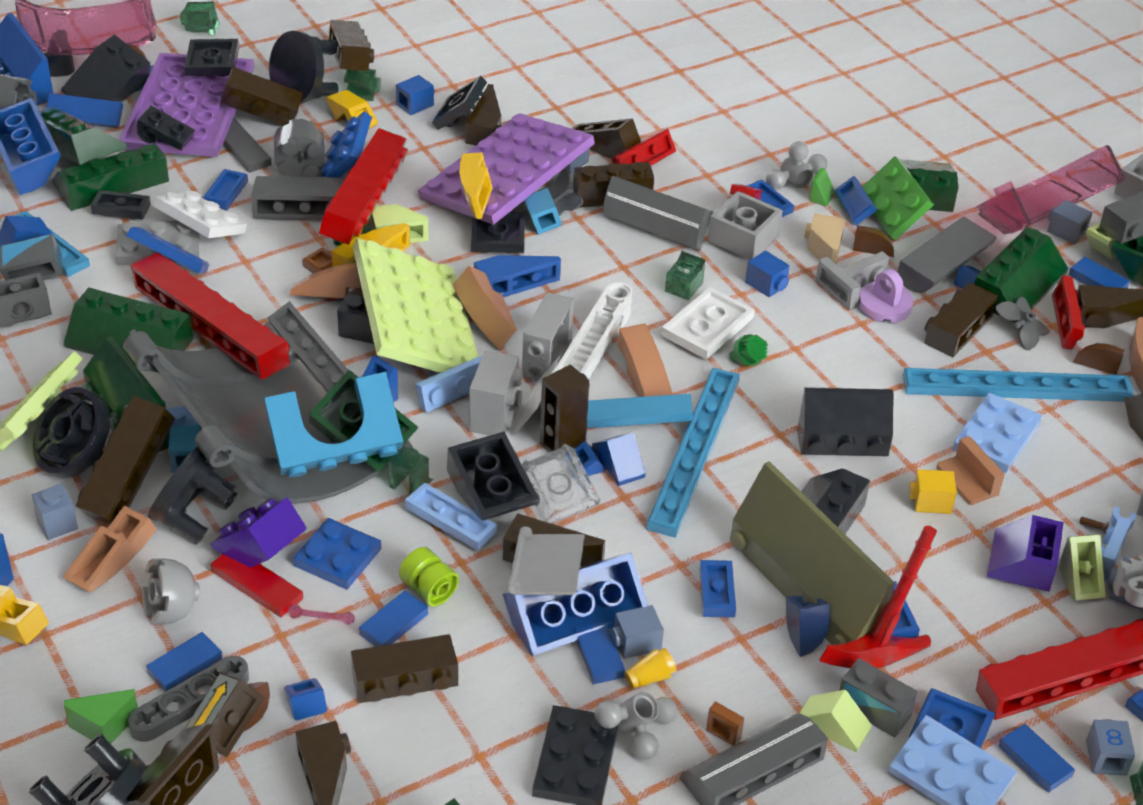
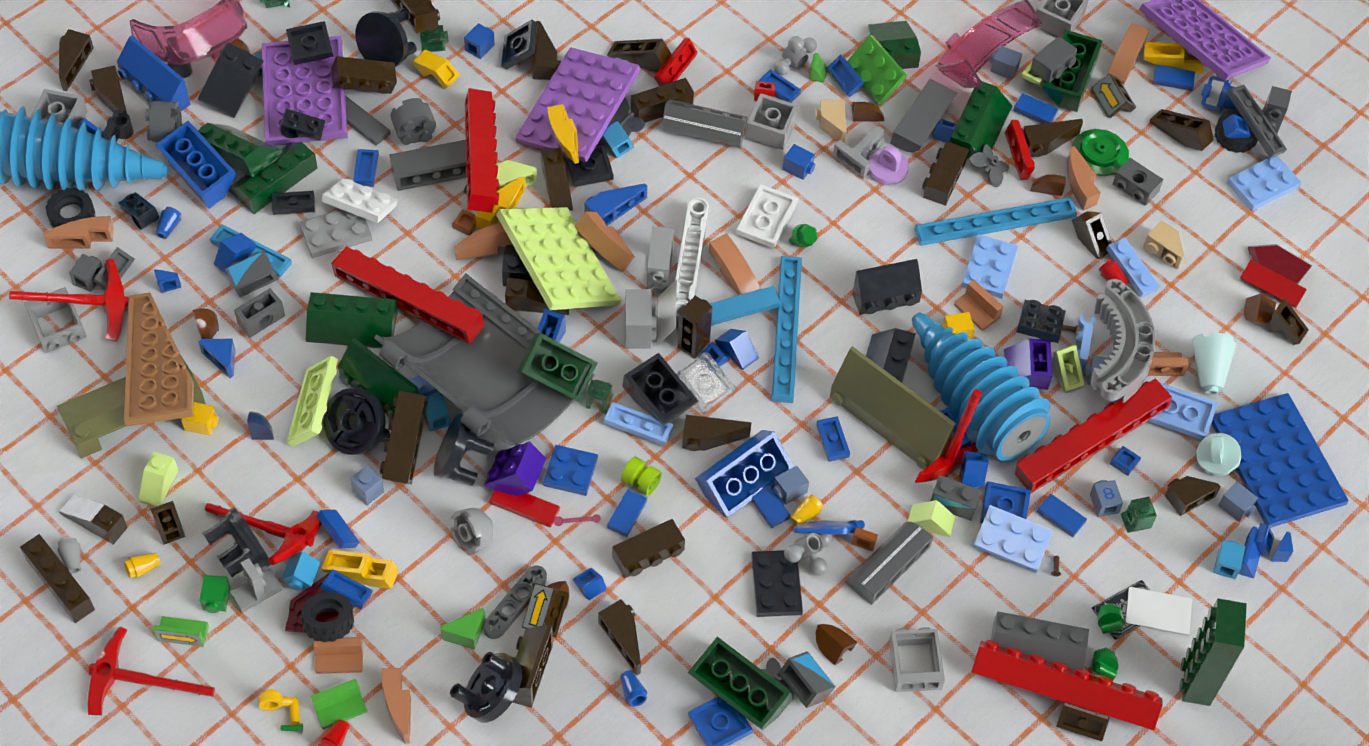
camera: 15 degrees left, 15 degrees up
(89, 110) = (223, 114): blue tile -> none
(110, 550) = (417, 505): nougat slope -> none
(168, 249) = (352, 241): blue tile -> none
(184, 661) = (501, 576): blue tile -> none
(299, 451) = (573, 376): dark azure arch -> none
(346, 146) = (449, 112): blue plate -> none
(355, 347) = (525, 296): none -> dark brown slope
(447, 385) = (604, 312): light blue plate -> none
(451, 234) = (556, 178): none -> dark brown slope
(546, 563) = (720, 452): light grey piece -> none
(676, 695) = (829, 527): none -> blue animal
(685, 276) = (739, 177): clear green window -> none
(807, 623) = (898, 453): dark blue brick -> none
(914, 663) = (974, 469): none -> blue brick
(973, 587) = (1009, 412): none -> dark azure cone
(1055, 501) = (1041, 321): none -> black plate

